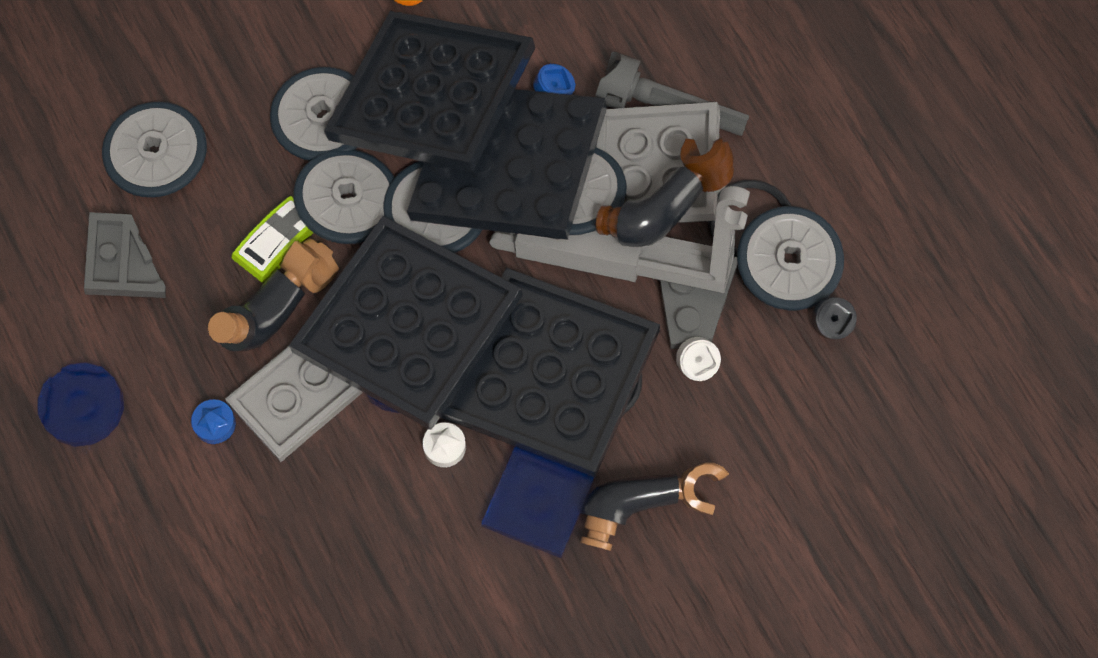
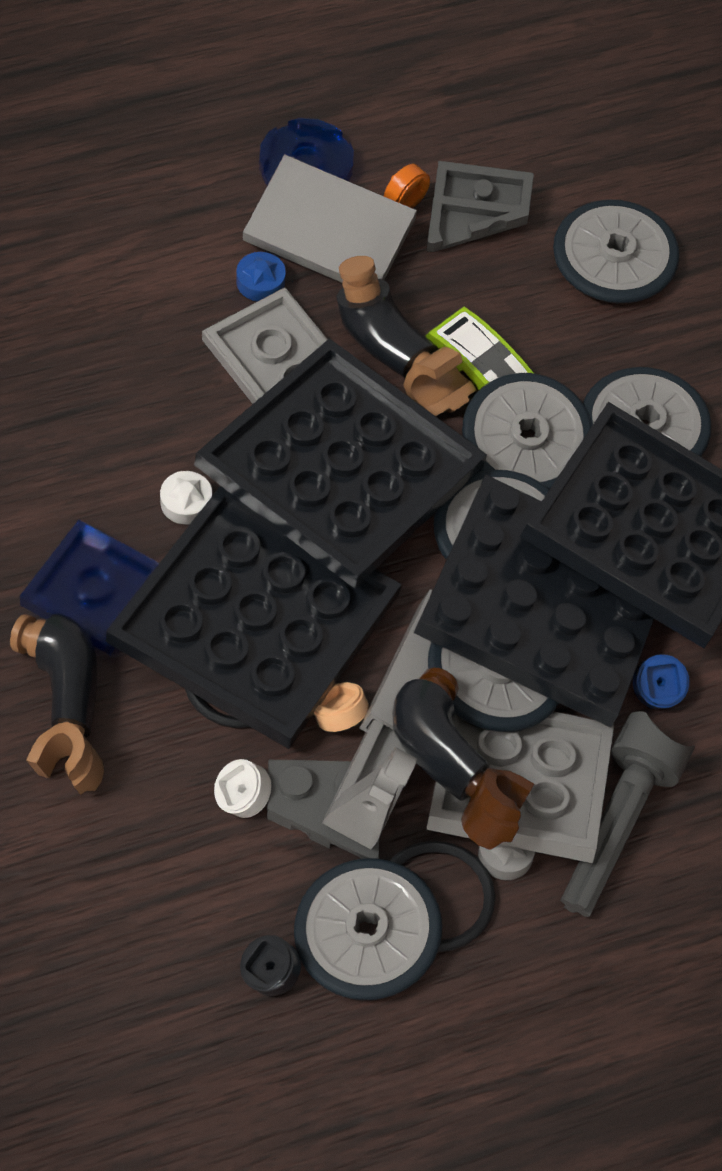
camera: 90 degrees right, 10 degrees down
(110, 314) = (408, 186): none -> orange tile
(156, 371) = (326, 220): none -> light grey tile
(619, 295) = (342, 707): none -> light nougat tile

